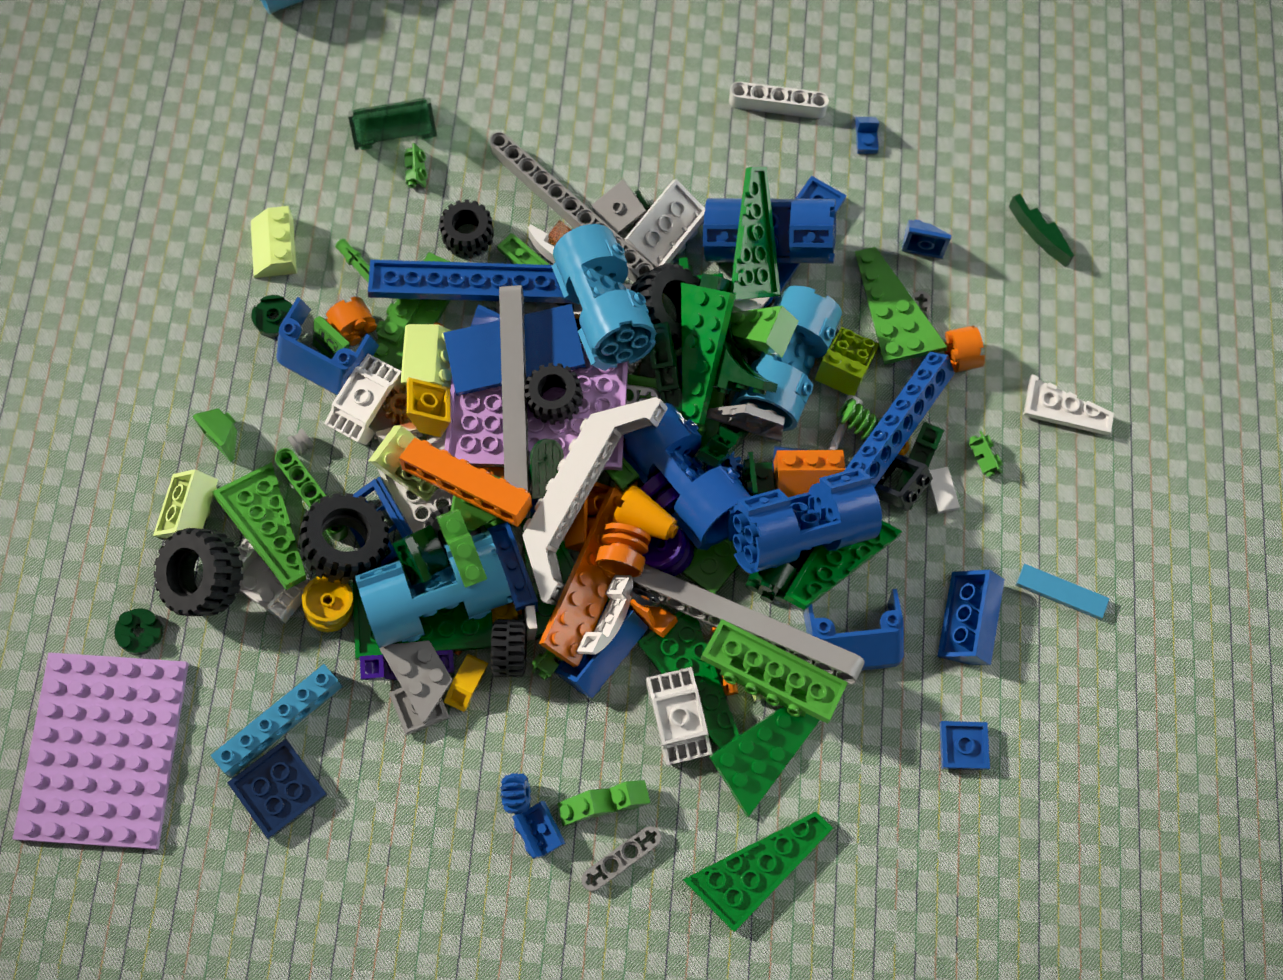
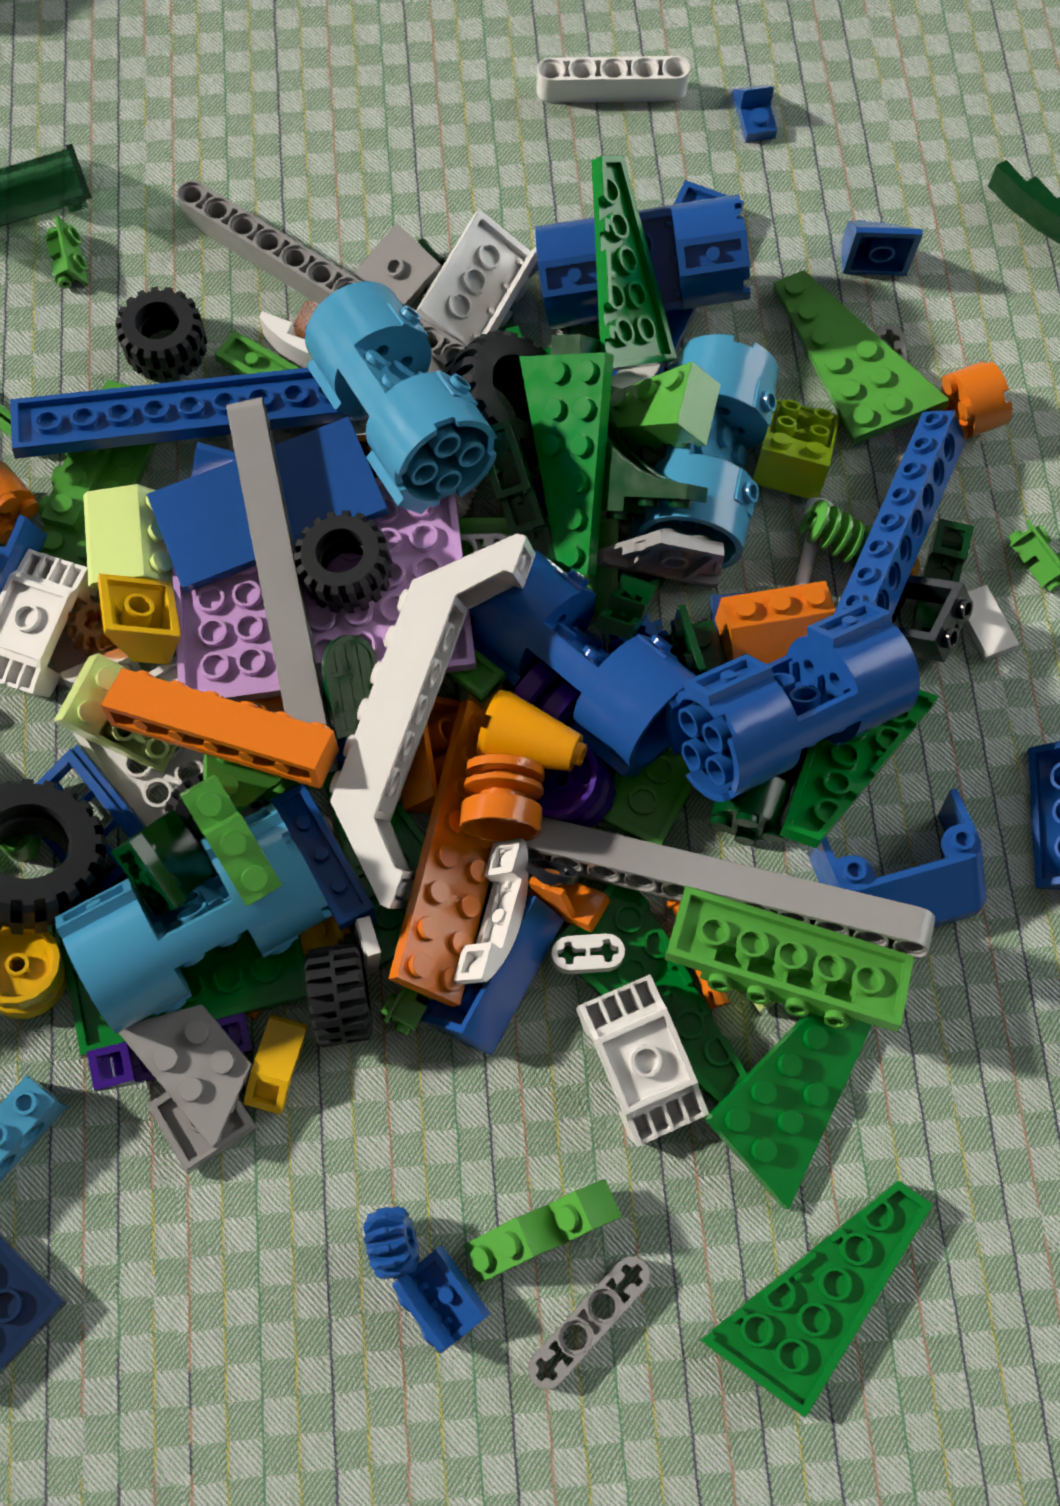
camera: 10 degrees left, 0 degrees up
(657, 655) = (587, 944): none -> white beam

